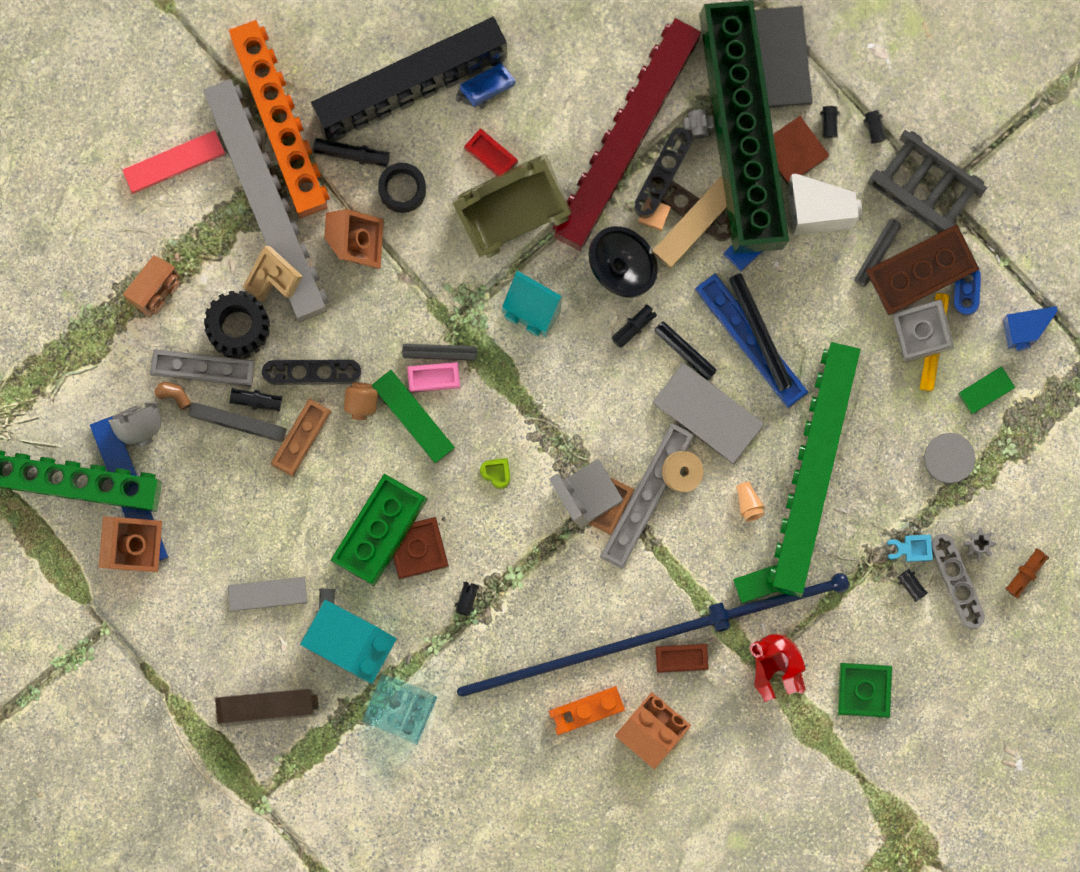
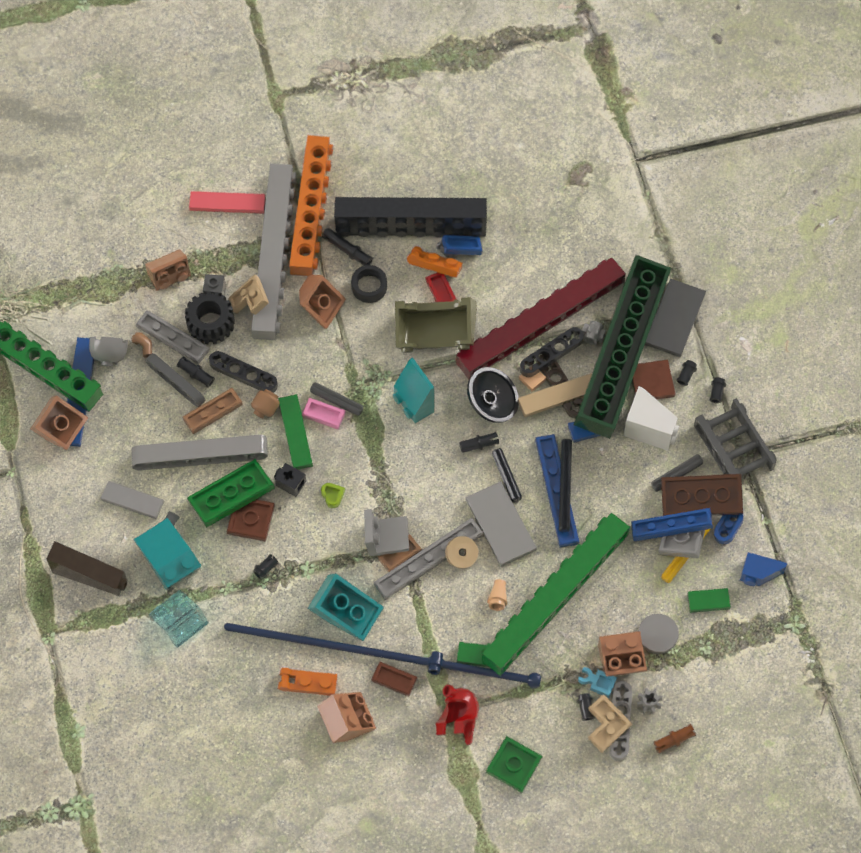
camera: 30 degrees right, 15 degrees down
(220, 281) = (214, 283): none -> dark grey brick
(315, 498) = (199, 452): none -> light grey beam
(446, 487) = (291, 486): none -> black brick
(465, 122) = (434, 262): none -> orange plate
(584, 602) = (345, 606): none -> teal slope
(905, 321) = (672, 524): none -> blue tile
(925, 506) = (622, 654): none -> nougat slope
(954, 594) = (612, 723): none -> tan tile

